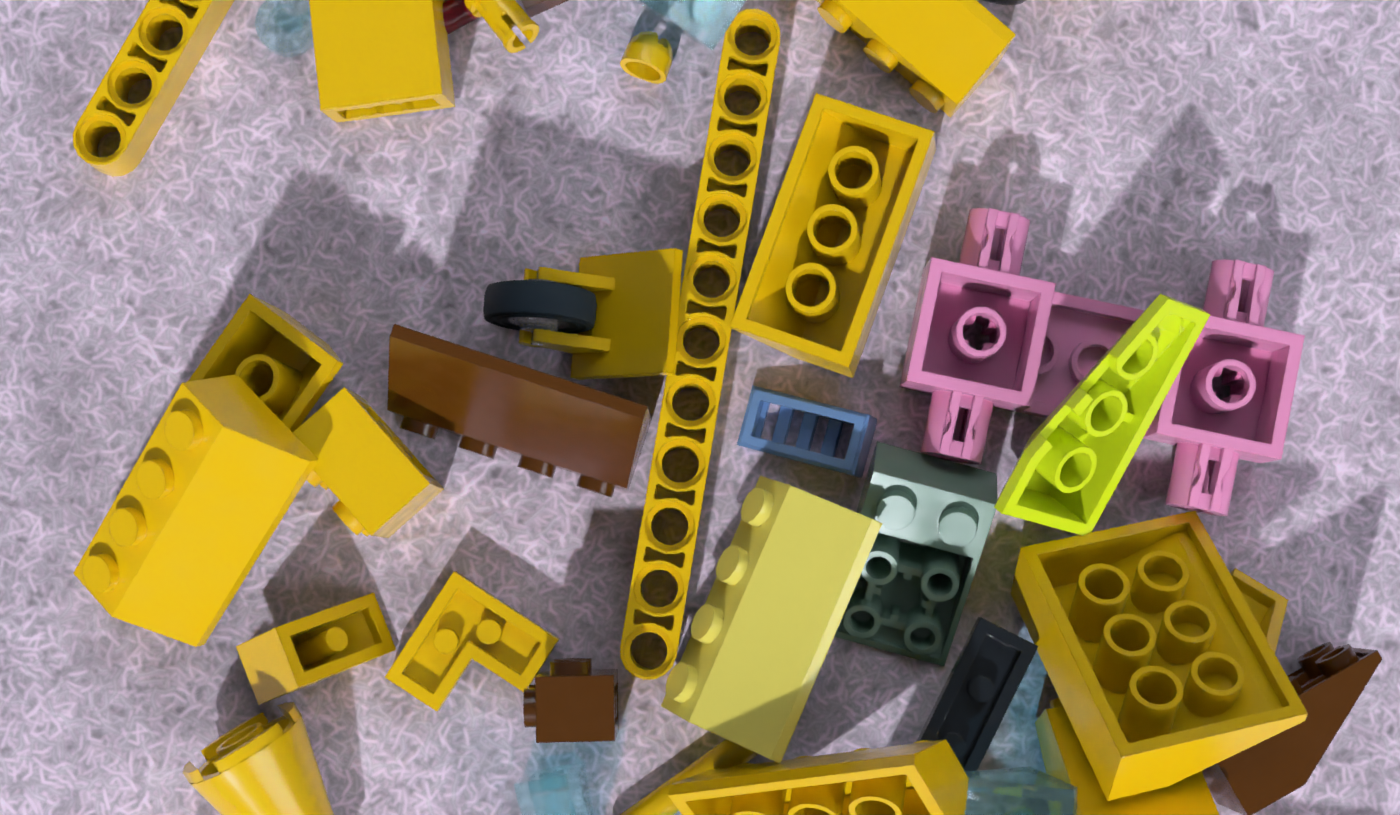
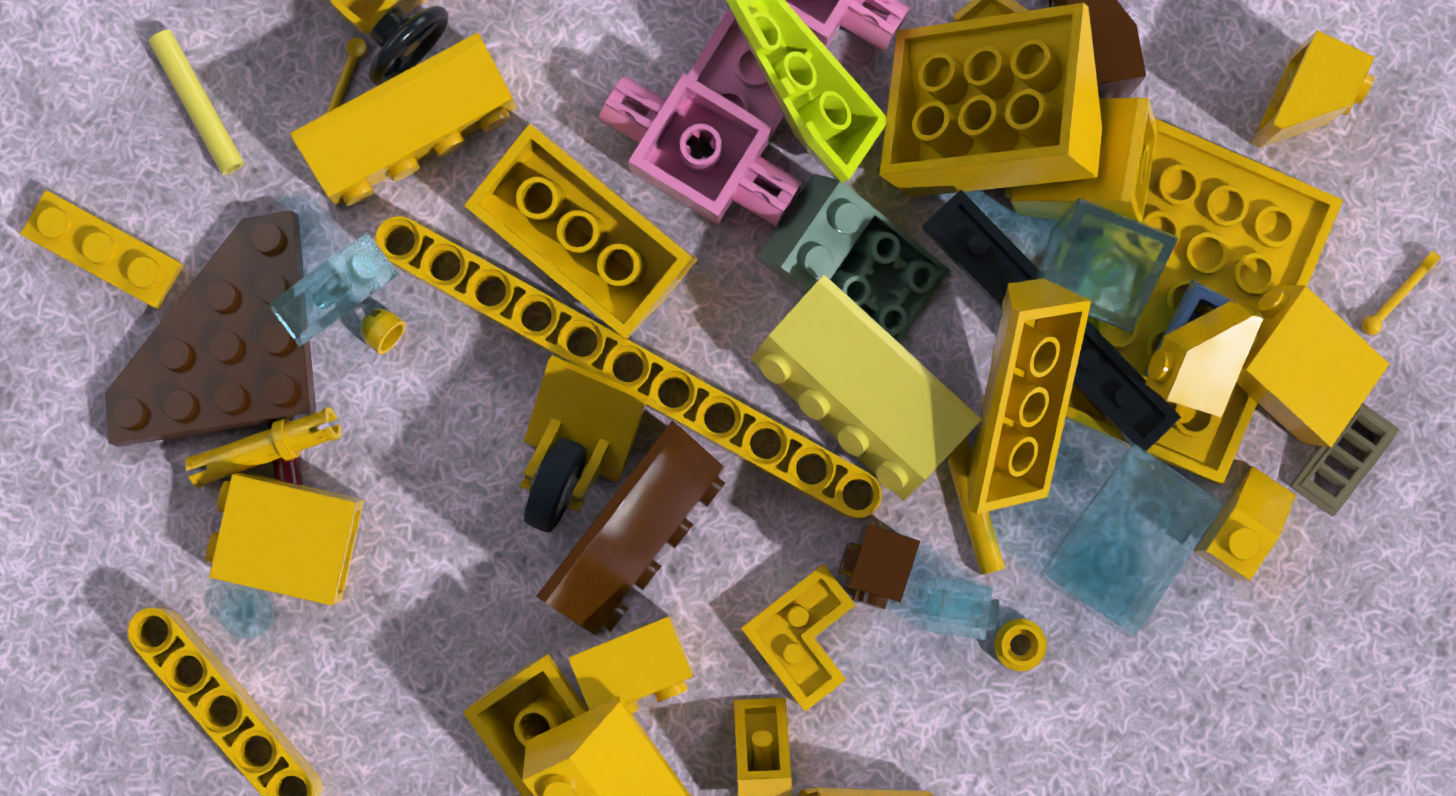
camera: 70 degrees left, 0 degrees up
(859, 442) = (753, 274): medium blue slope -> none

